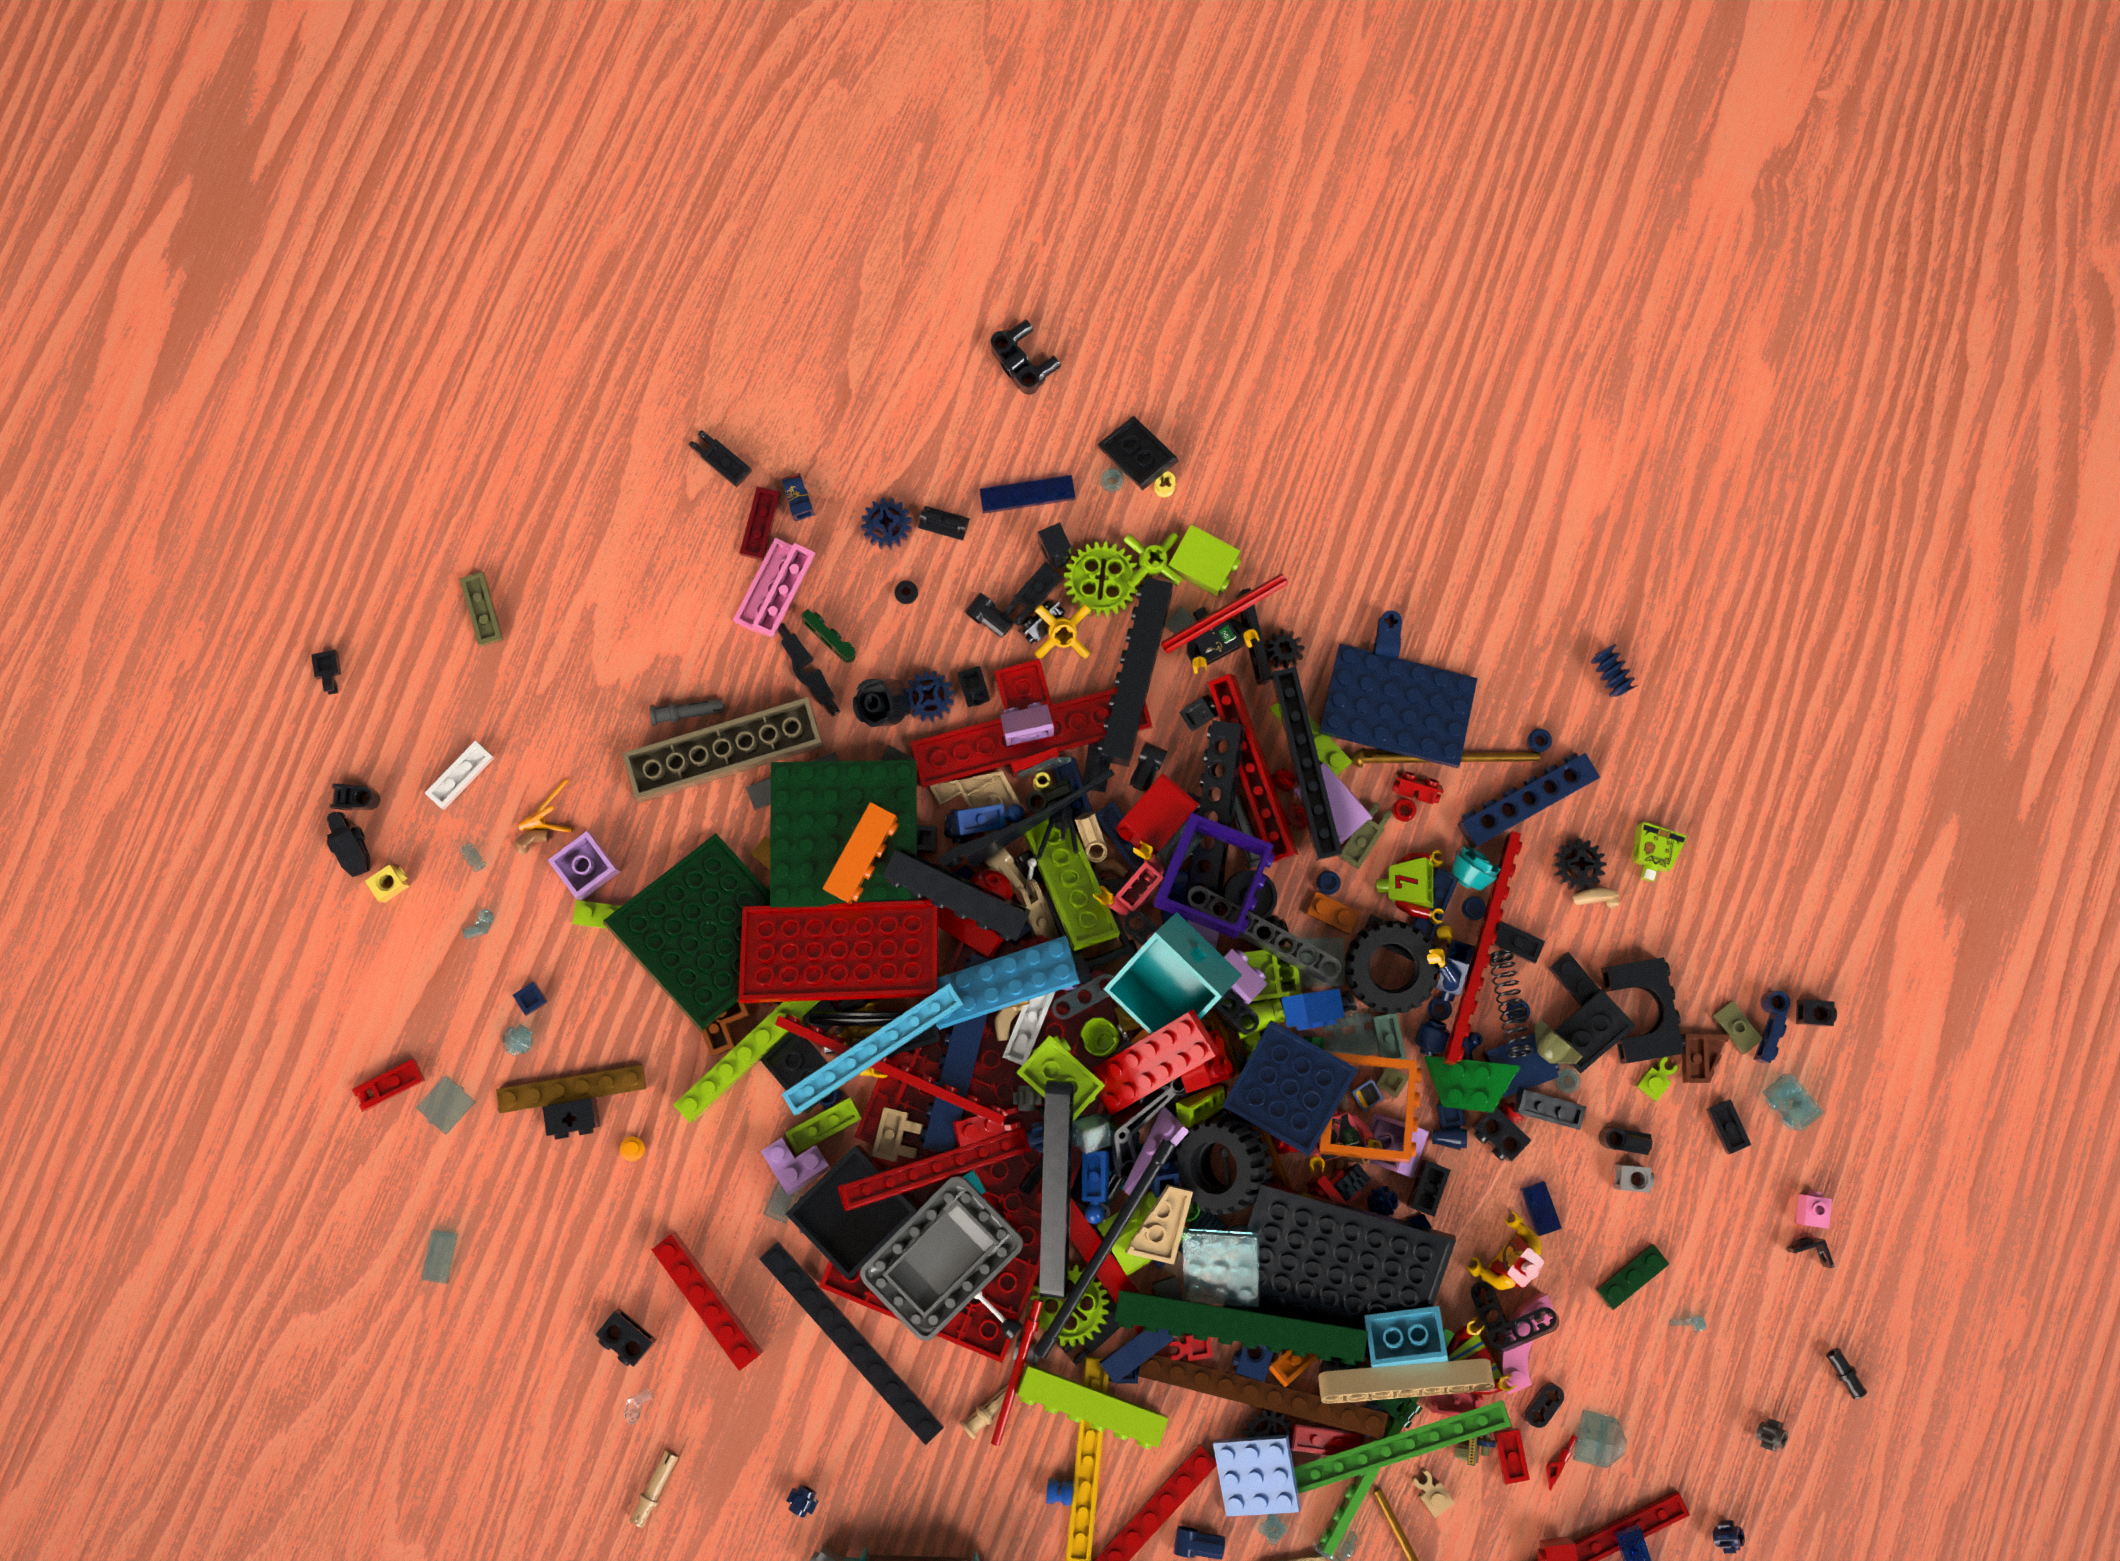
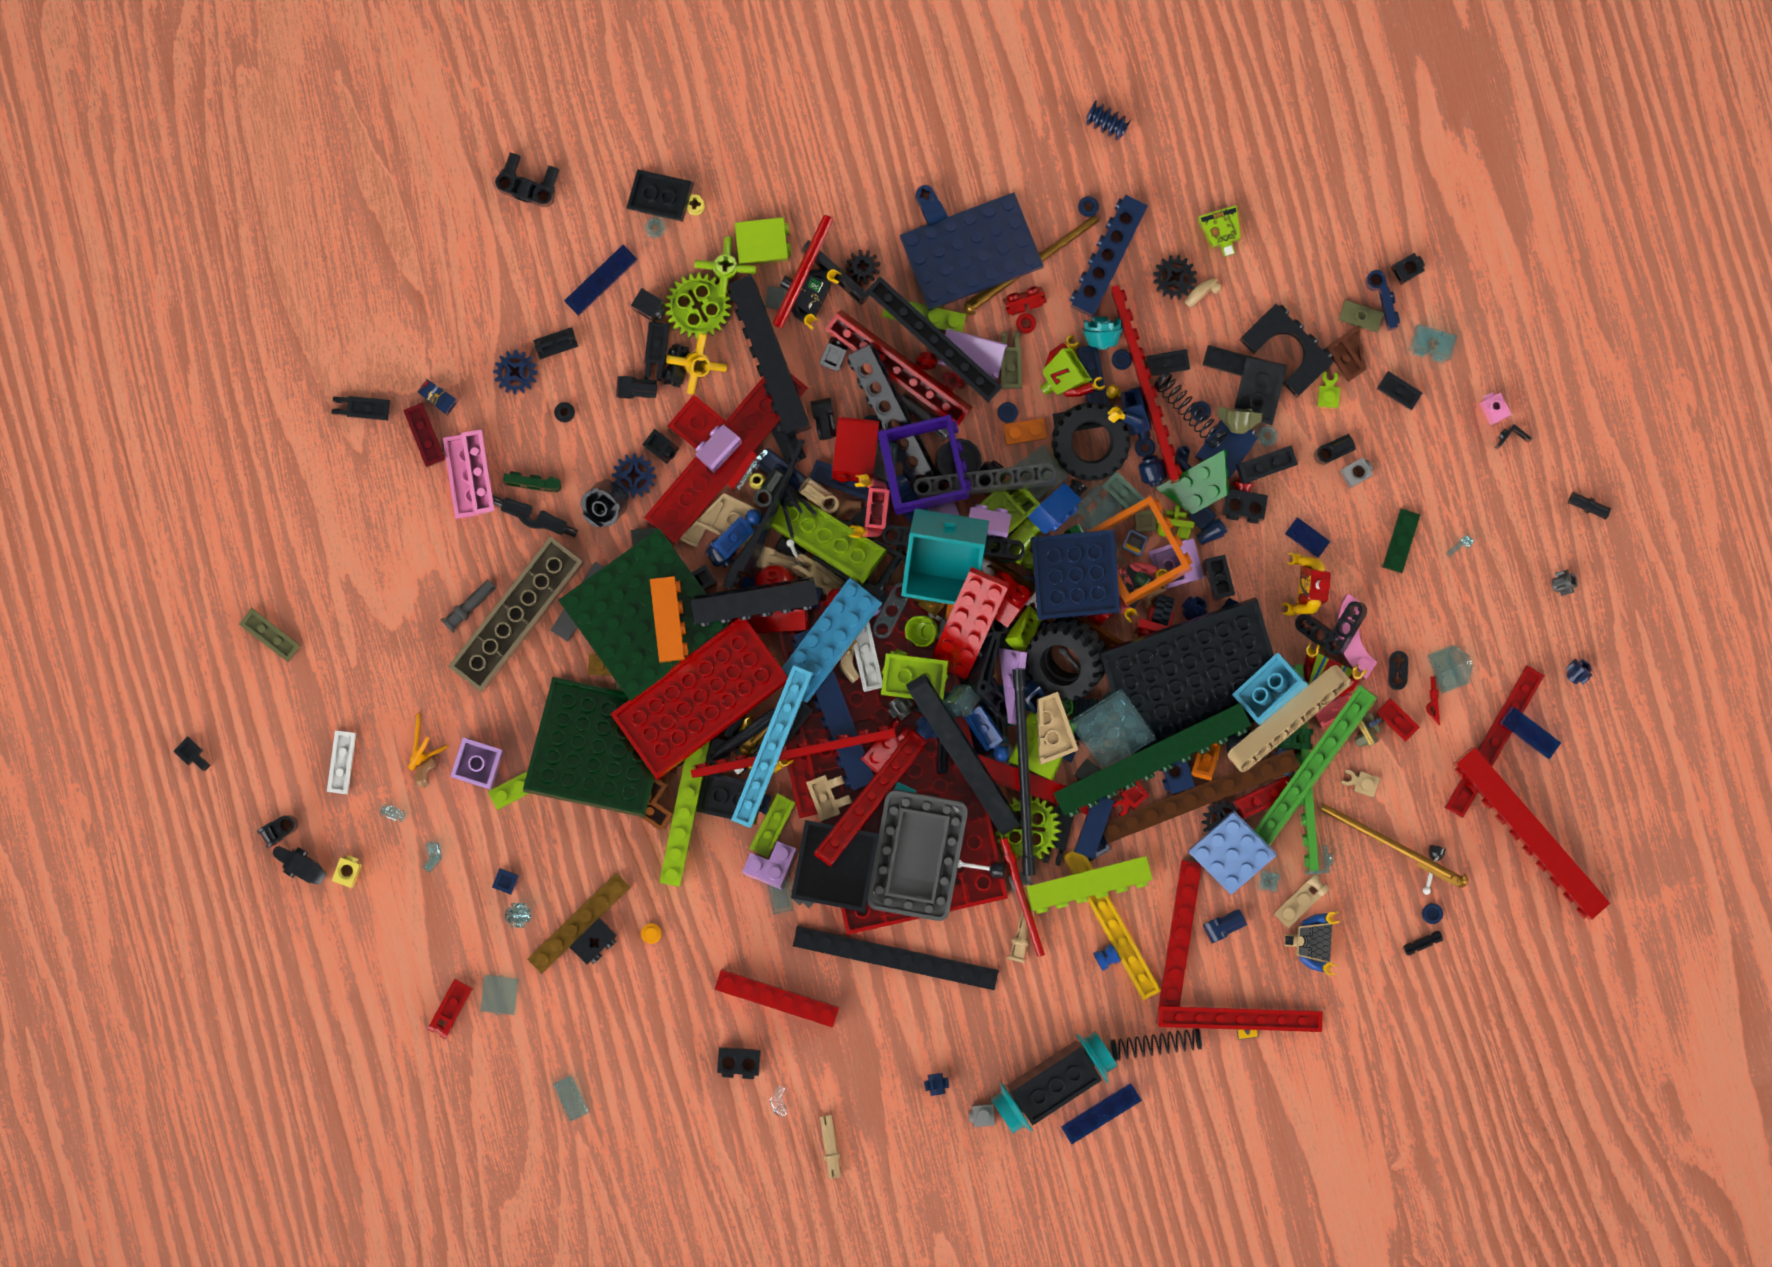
camera: 30 degrees left, 5 degrees up
(1426, 1113) = (1184, 527): none -> lime hips

